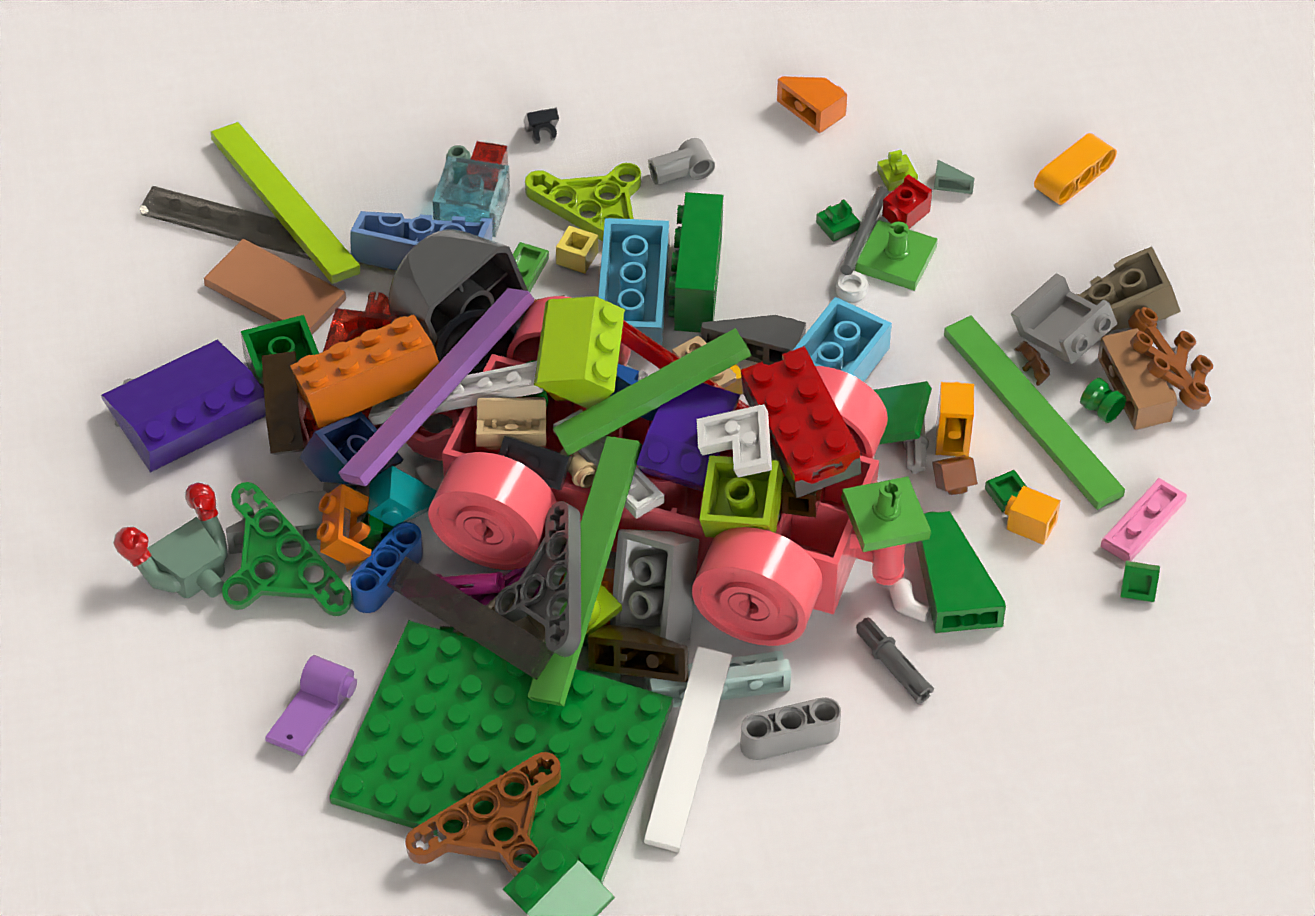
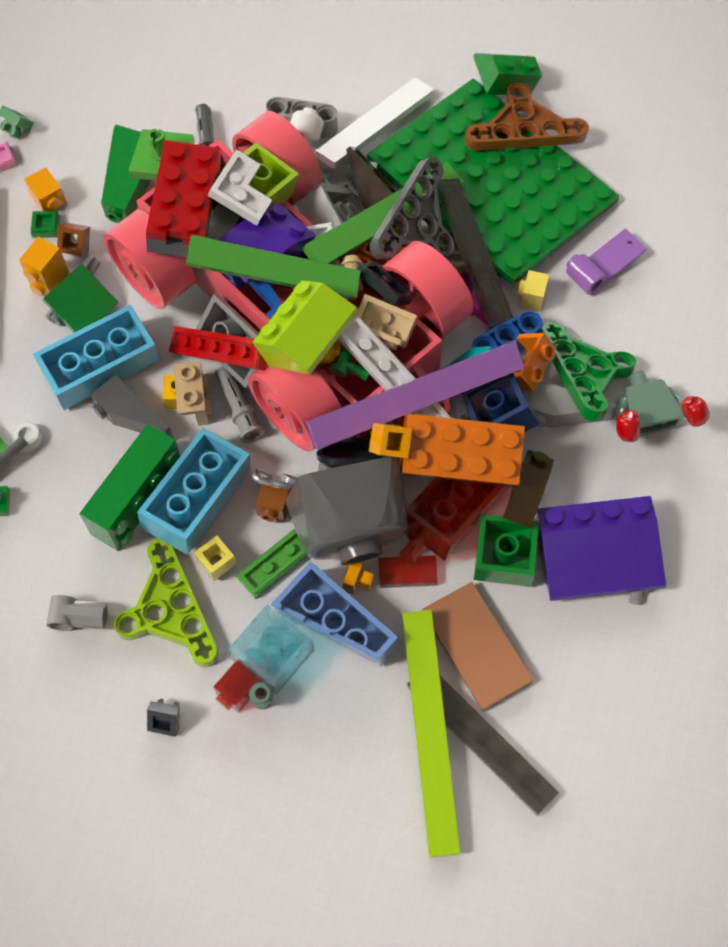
camera: 150 degrees left, 15 degrees up
(381, 634) = (533, 290): none -> light yellow plate
(439, 321) = (390, 440): none -> light orange brick
(766, 686) = (308, 124): none -> white head

